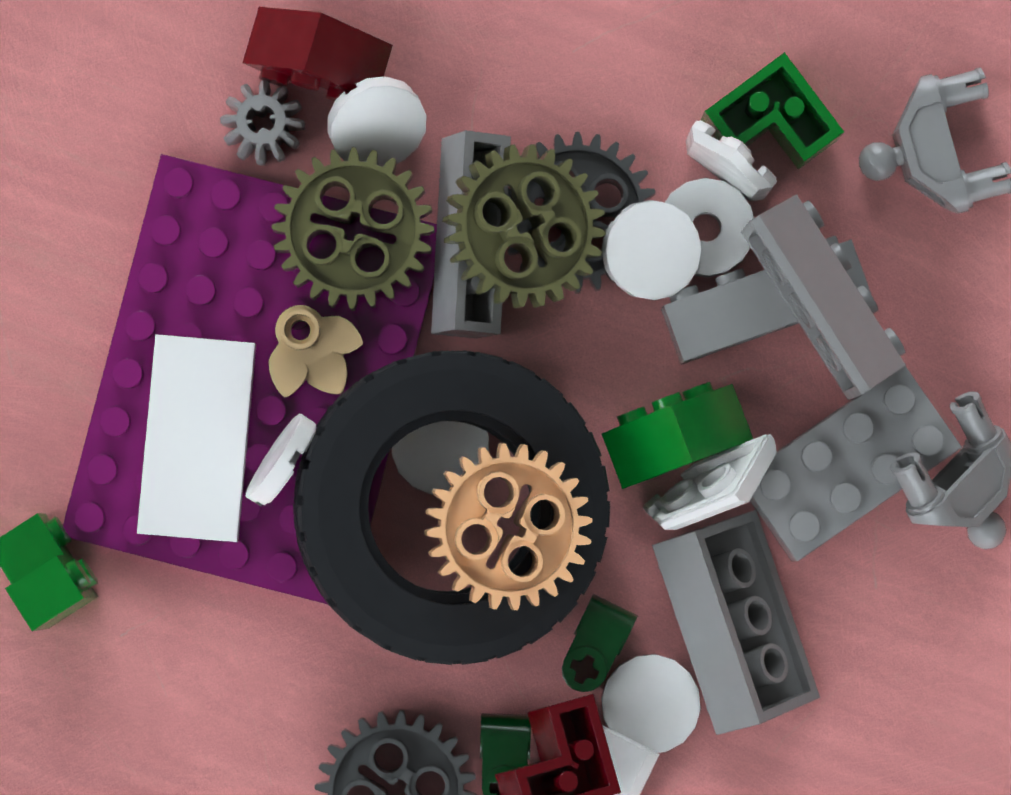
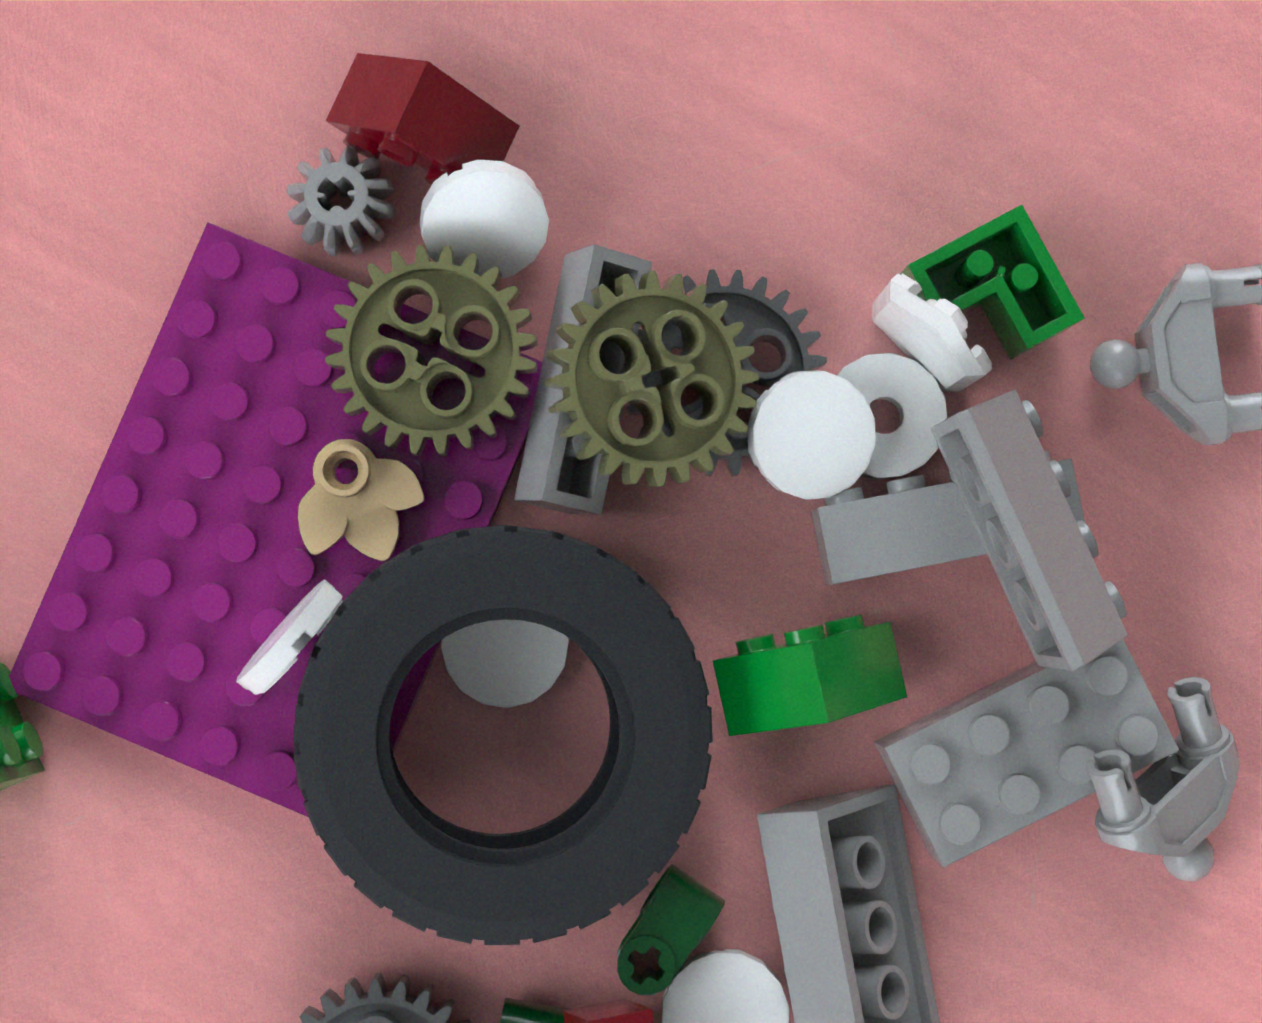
camera: 10 degrees right, 0 degrees up
(196, 438) = (191, 591): white tile -> none
(466, 505) = (623, 807): light nougat gear -> none
(714, 484) = (850, 754): white tile -> none

